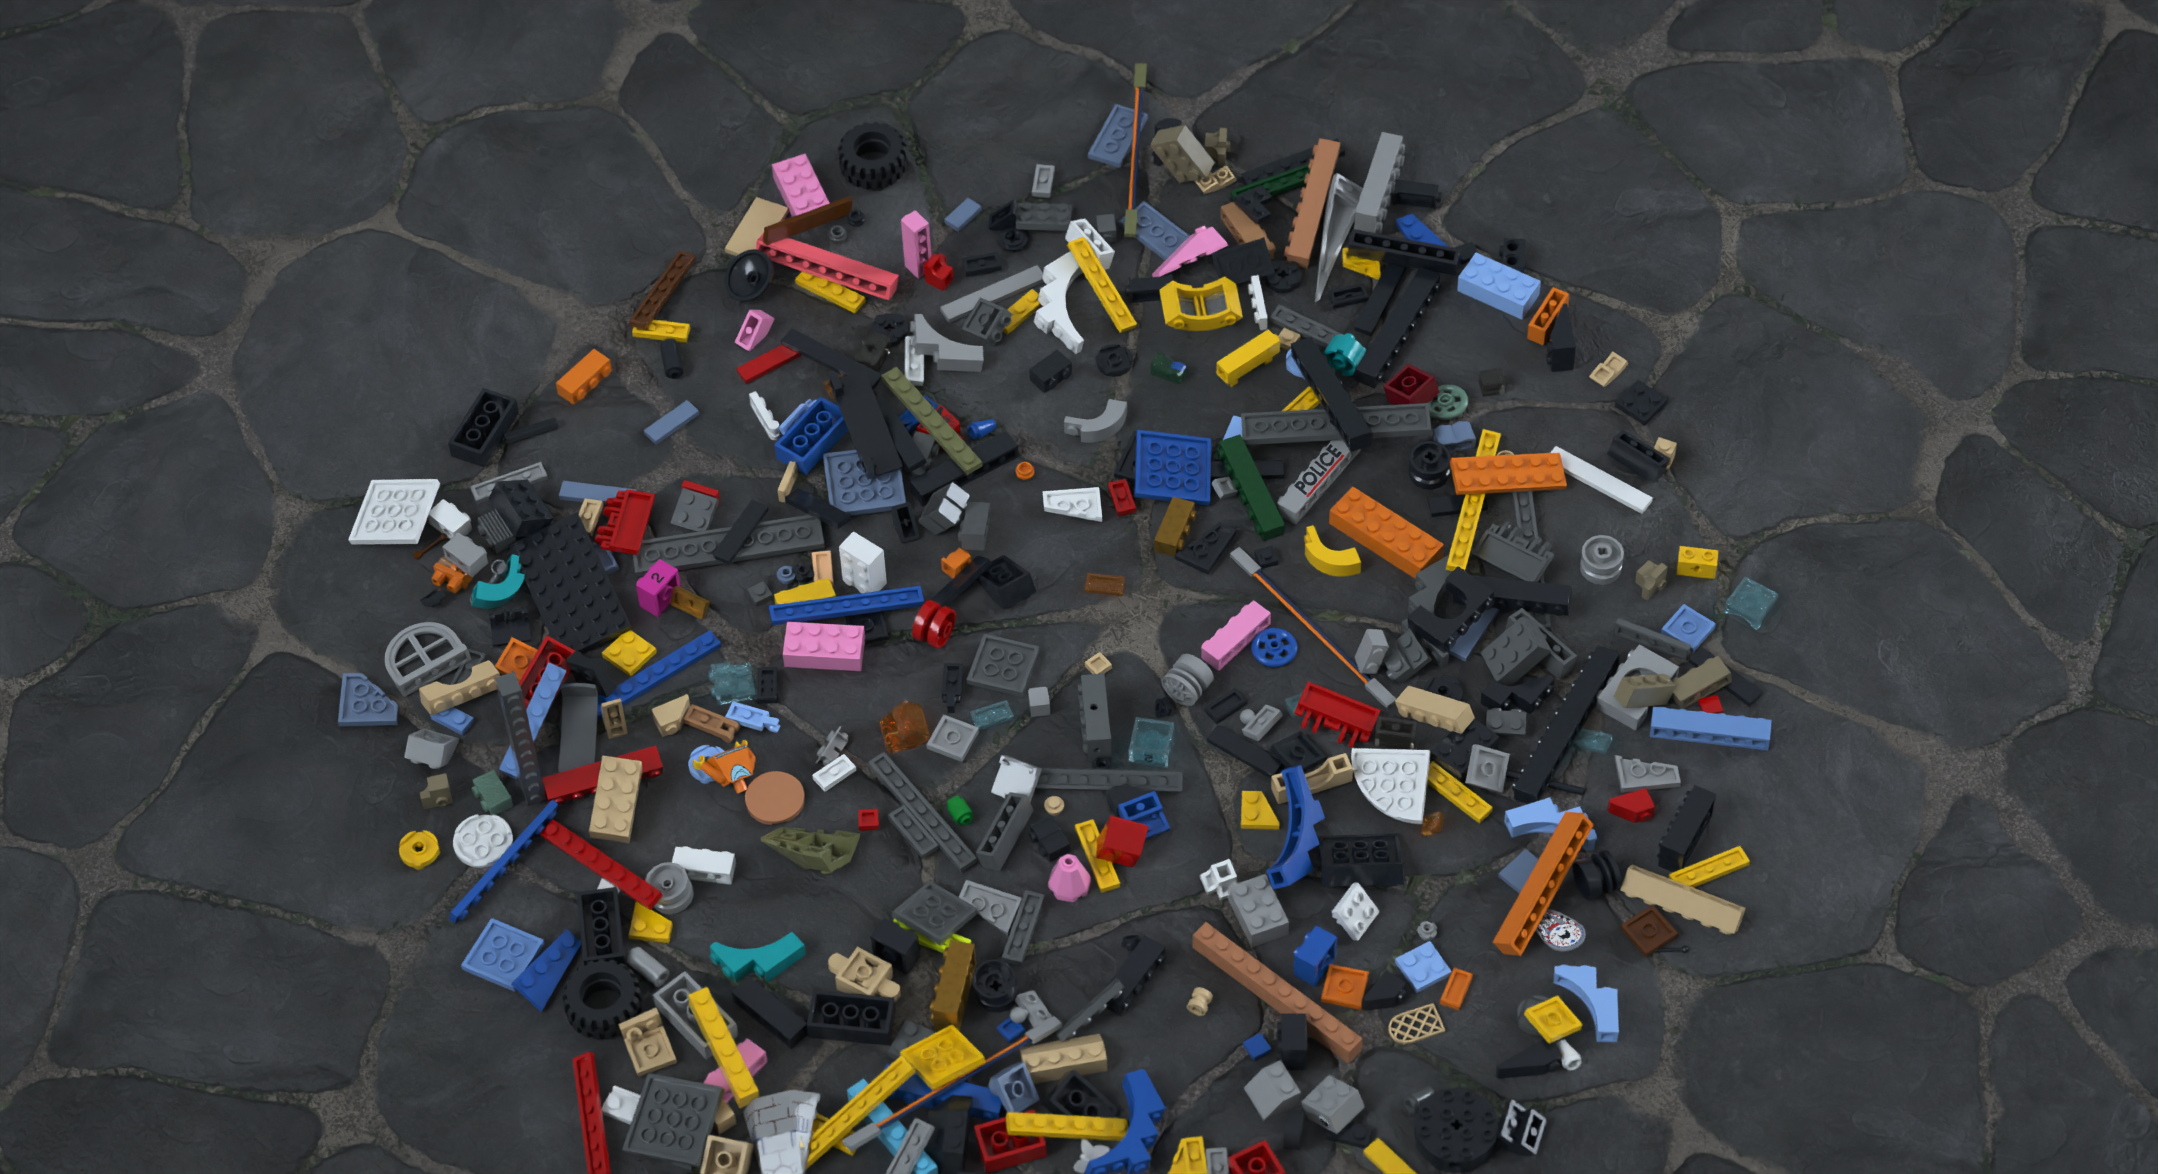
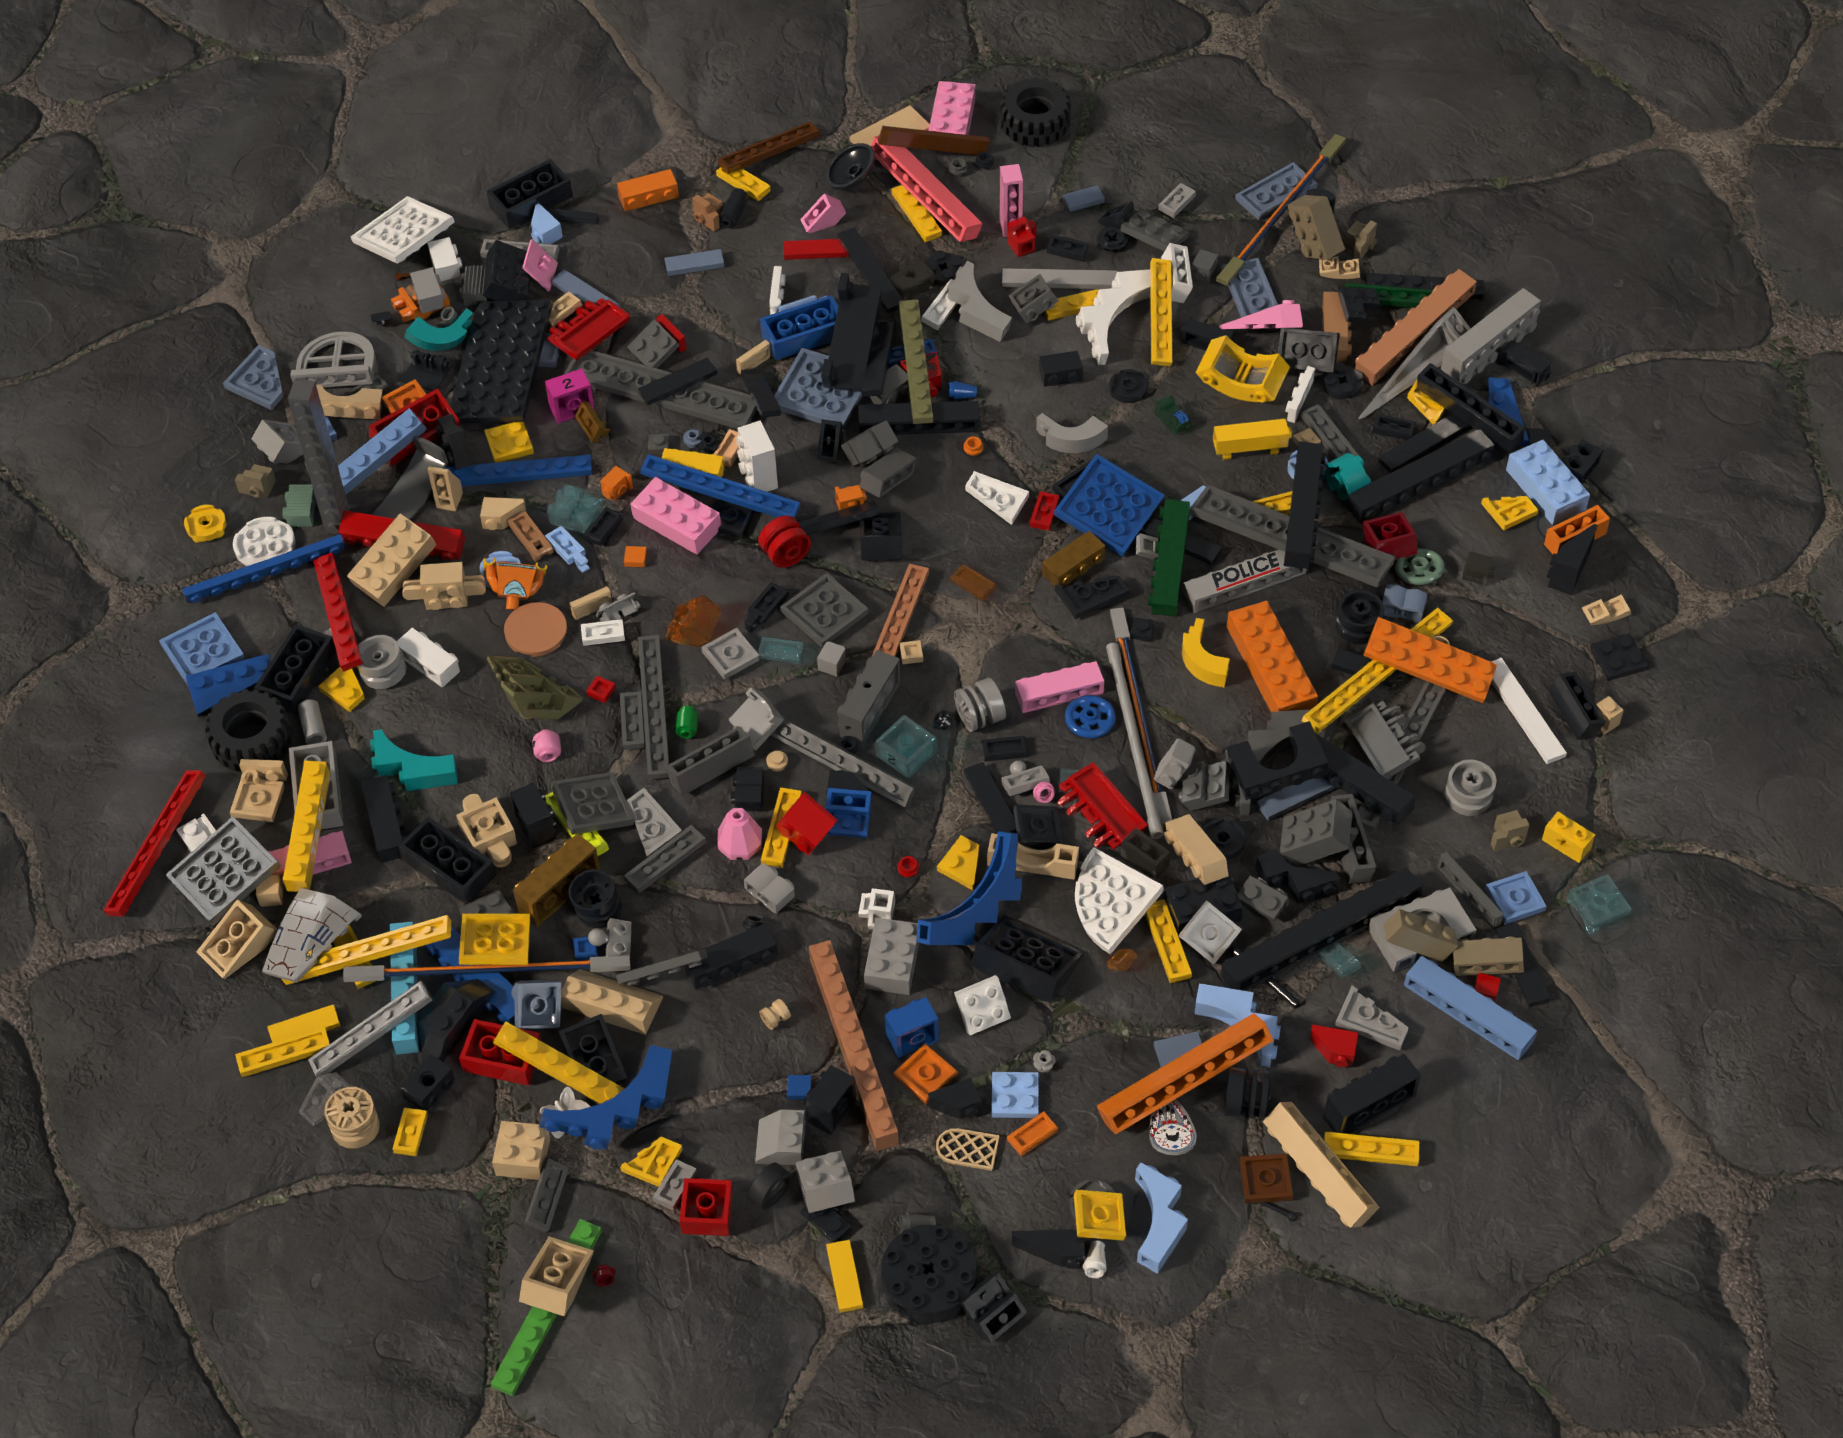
camera: 30 degrees right, 0 degrees up
(517, 450) = (544, 226): none -> light blue slope
(543, 486) = (540, 265): none -> bright pink piece
(652, 372) = (707, 210): none -> medium nougat brick
(676, 799) = (444, 586): none -> tan brick
(751, 643) = (615, 483): none -> orange brick
(807, 753) = (590, 603): none -> tan tile
(812, 697) = (635, 556): none -> orange tile
(859, 887) = (546, 745): none -> bright pink head
(1066, 637) = (902, 609): none -> nougat plate
(1123, 907) = (769, 887): none -> light grey brick
(1218, 836) = (908, 866): none -> red plate
(1283, 724) = (1045, 797): none -> bright pink plate
(1382, 704) = (1154, 821): none -> light grey piece
(1484, 323) = (1510, 510): none -> yellow wing

